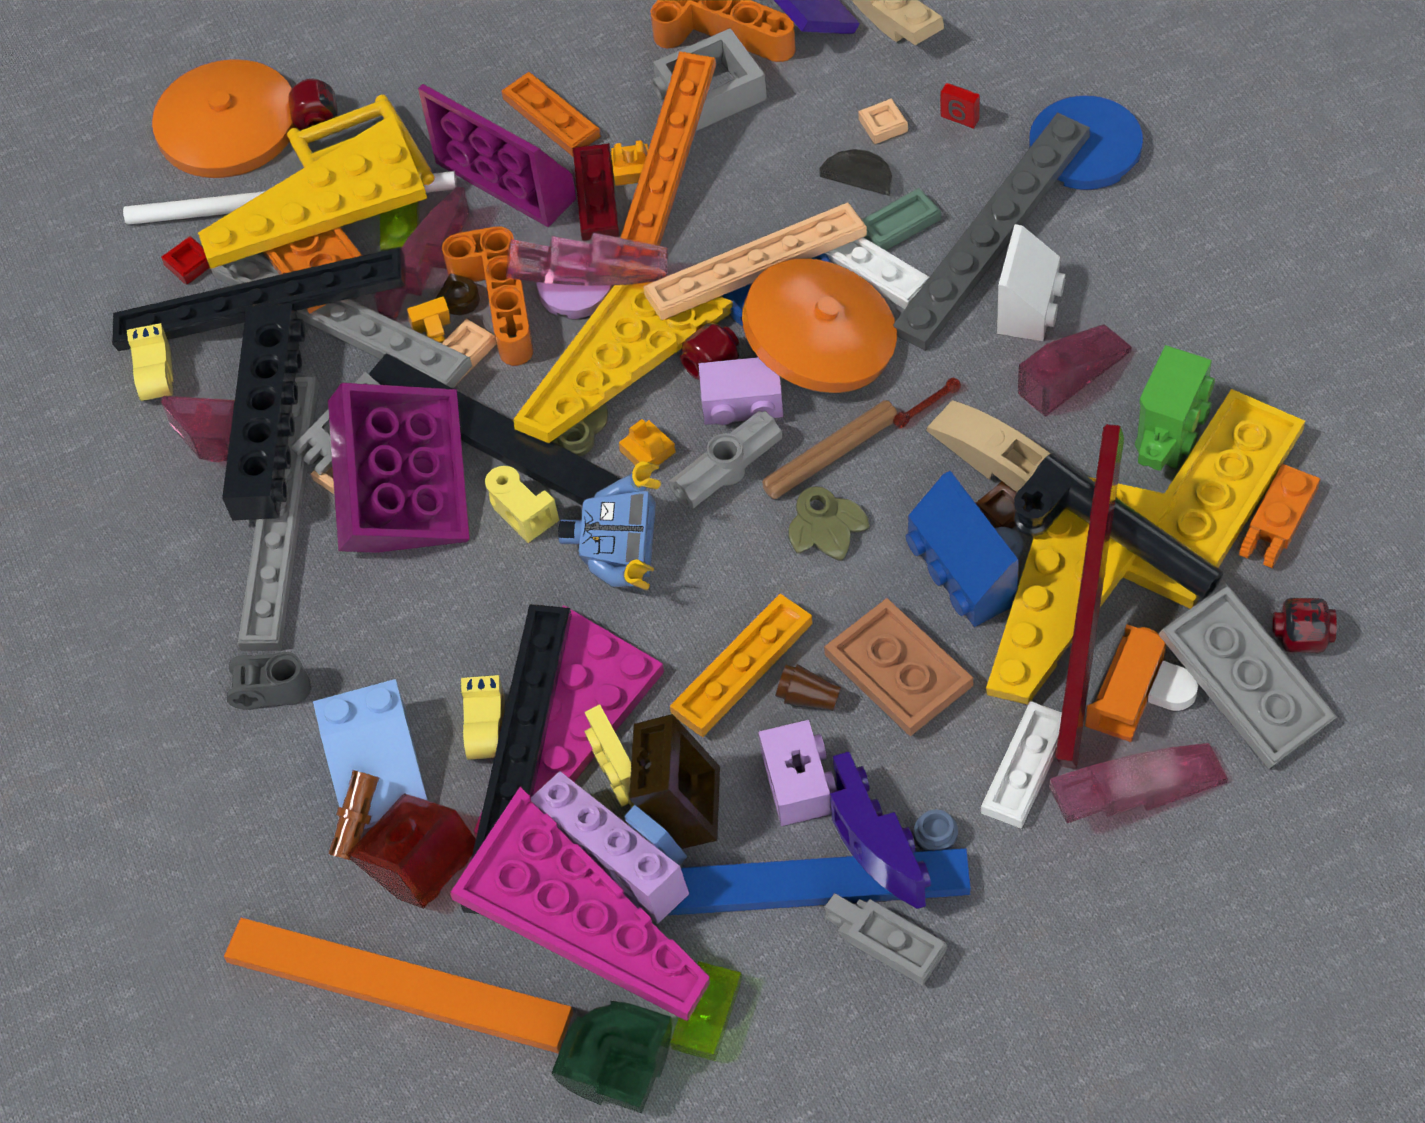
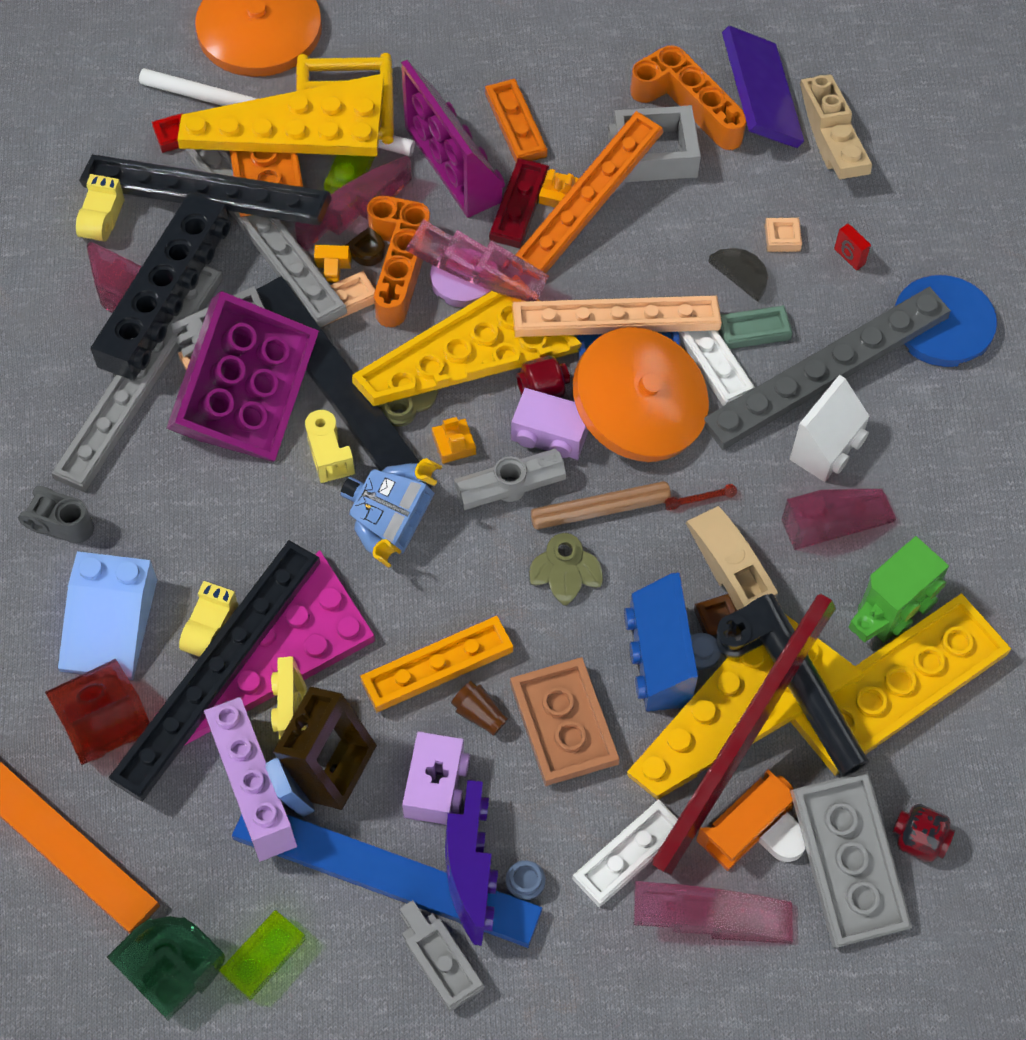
camera: 15 degrees right, 5 degrees up
(312, 103) = (329, 38): dark red head -> none
(353, 813) = (66, 659): dark orange pin -> none
(564, 901) = (184, 807): dark pink wing -> none
(1280, 512) = (952, 721): orange hinge -> none

